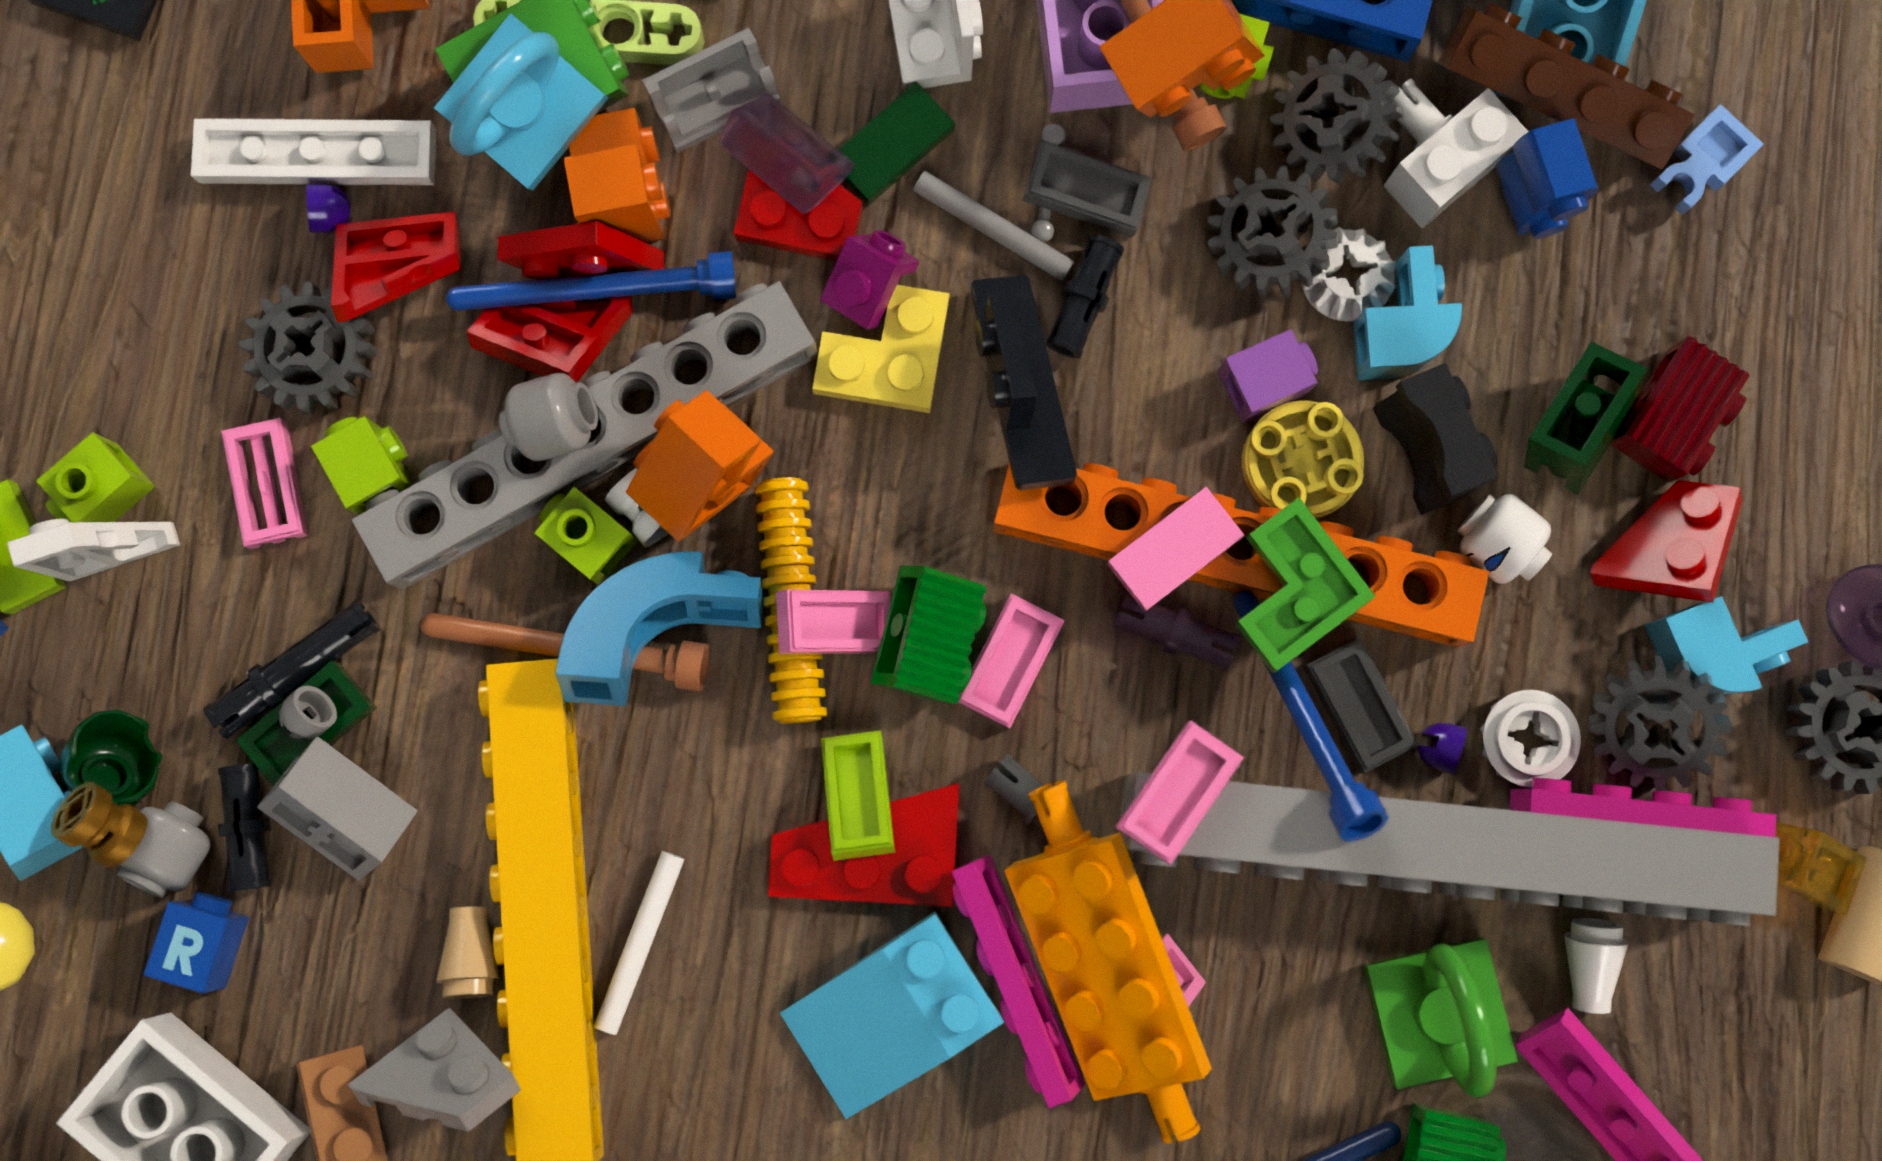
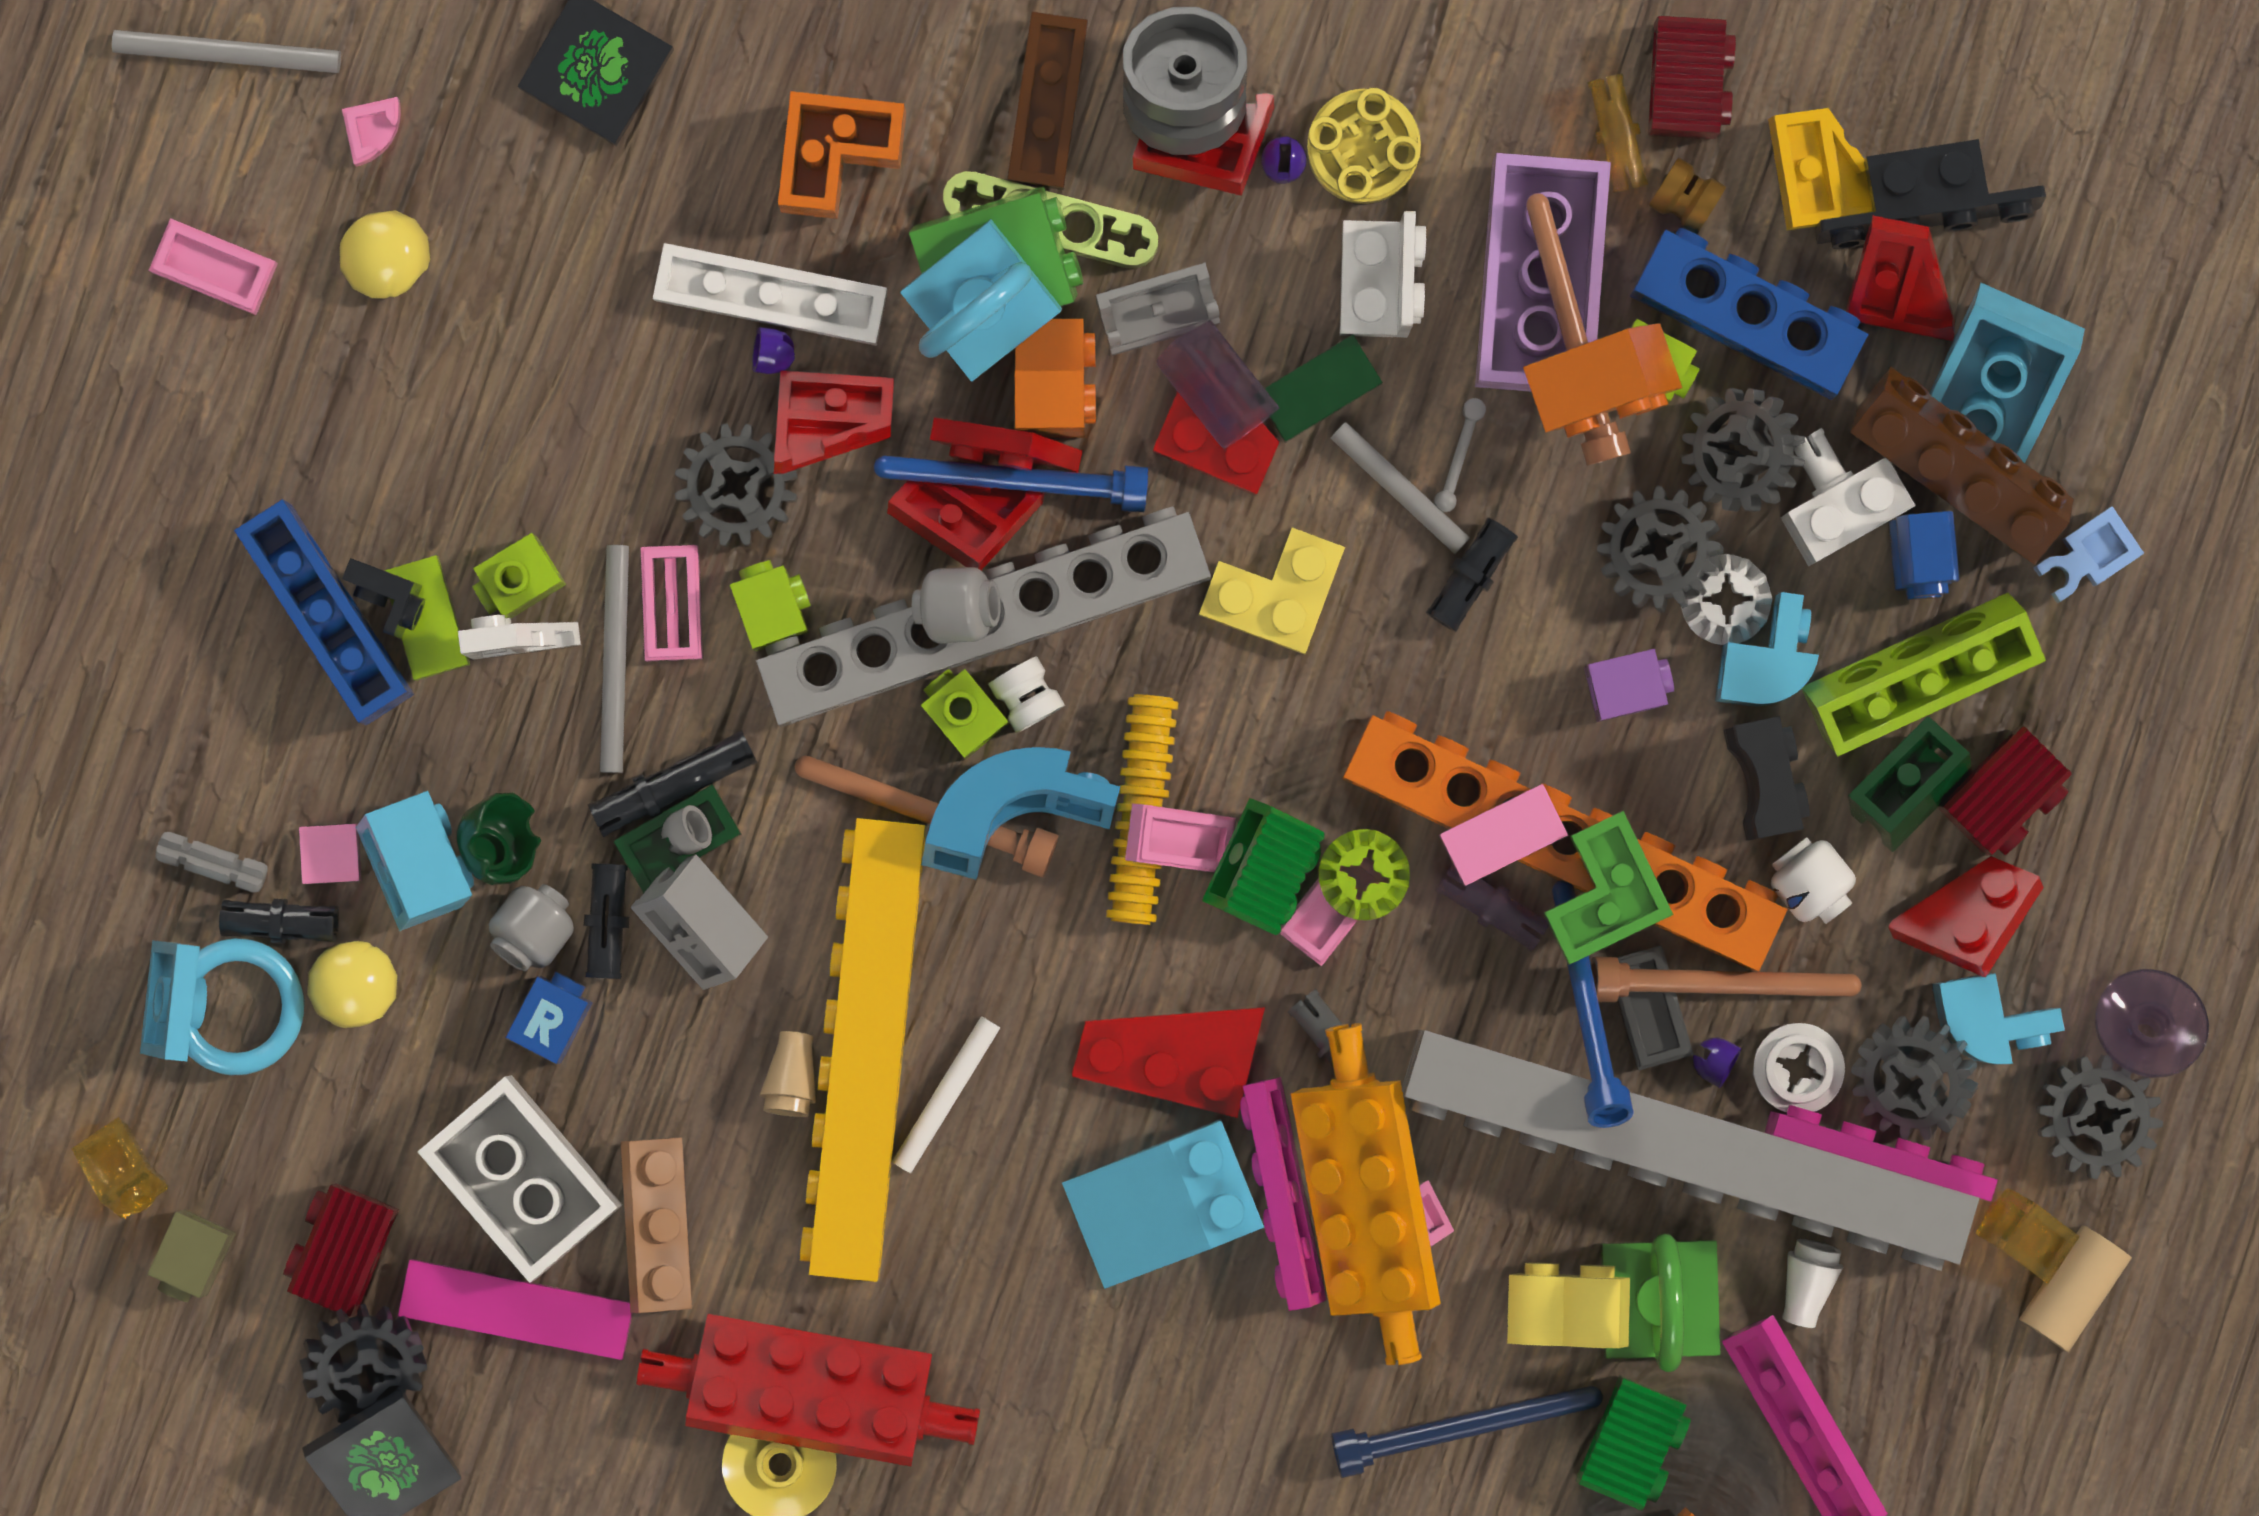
camera: 10 degrees right, 5 degrees up
(98, 824) = (488, 889): pearl gold wheel -> none
(214, 552) = (614, 658): none -> light grey bar
(440, 1076) = (754, 1176): light grey wing -> none
(696, 464) = (1082, 675): orange brick -> none
(857, 795) = (1170, 1000): lime tile -> none
(867, 276) = (1272, 517): magenta bracket -> none
(1014, 641) = (1340, 888): none -> lime gear
(1022, 382) = (1395, 647): black bracket -> none
(1087, 189) = (1495, 470): dark grey tile -> none
(1179, 792) = (1457, 1055): bright pink tile -> none
(1304, 454) = (1645, 768): light yellow tile -> none
(1326, 680) = (1617, 980): none -> nougat piece
(1348, 1044) = (1568, 1309): none -> light yellow brick
(1573, 303) = (1923, 674): none -> lime brick

